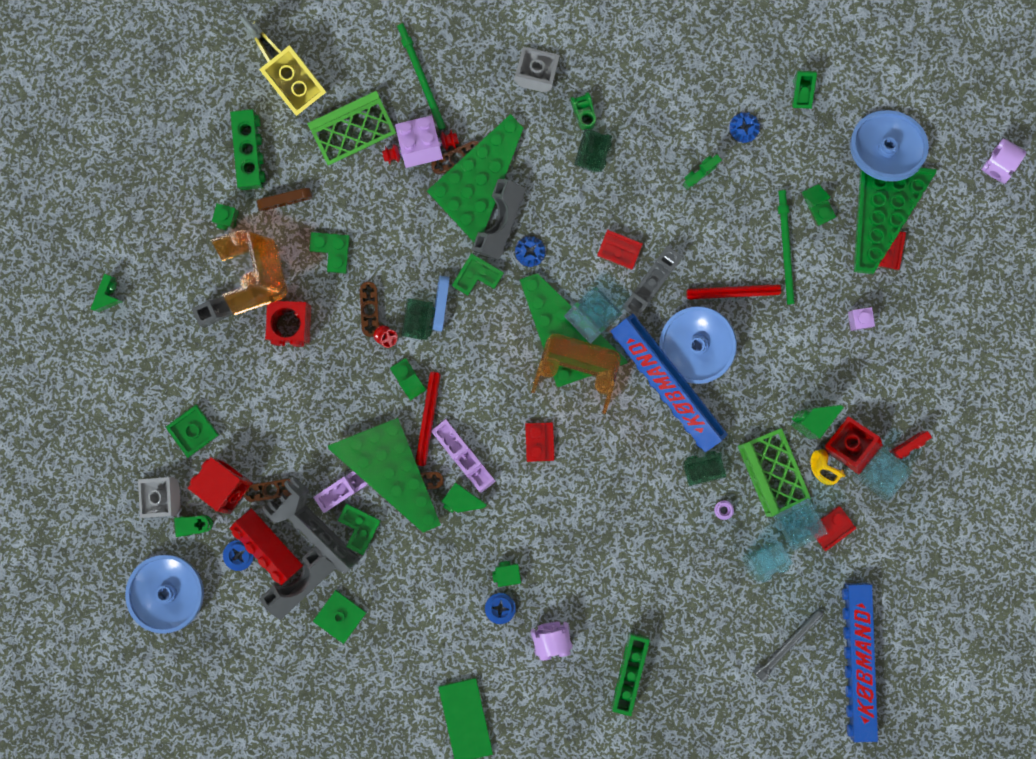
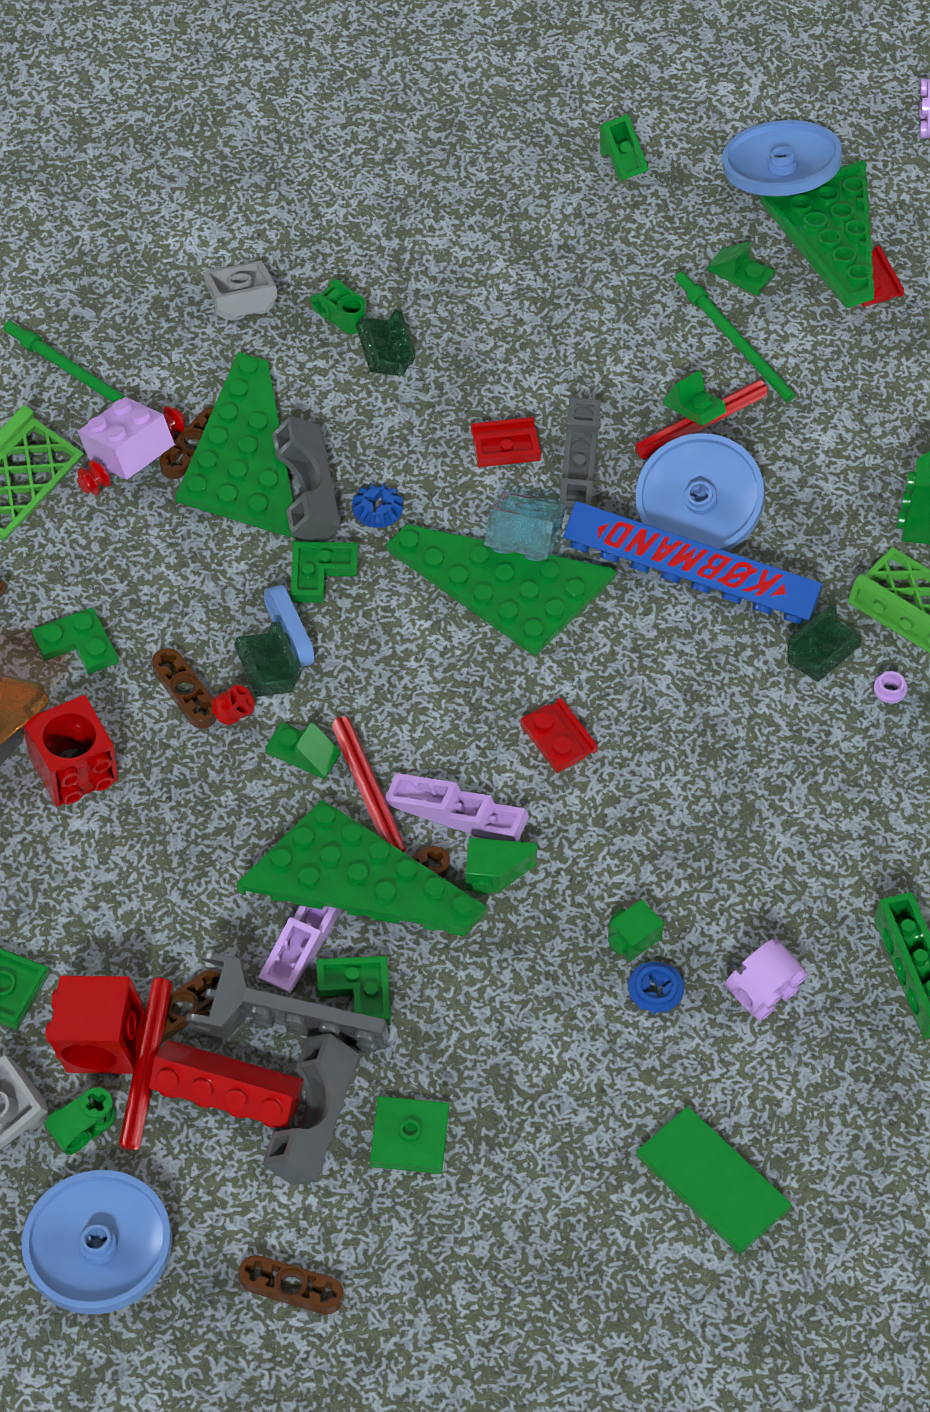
camera: 35 degrees left, 30 degrees down
(236, 513) = (148, 1047): none -> red axle
(237, 564) = (178, 1116): blue gear -> none
(237, 646) = (284, 1270): none -> reddish brown beam
(580, 357) = (506, 589): clear orange windscreen -> none
(706, 167) = (557, 293): green plate -> none
(734, 283) = (693, 402): none -> green slope
(739, 134) = (574, 239): blue gear -> none
(861, 319) = (898, 364): lavender brick -> none

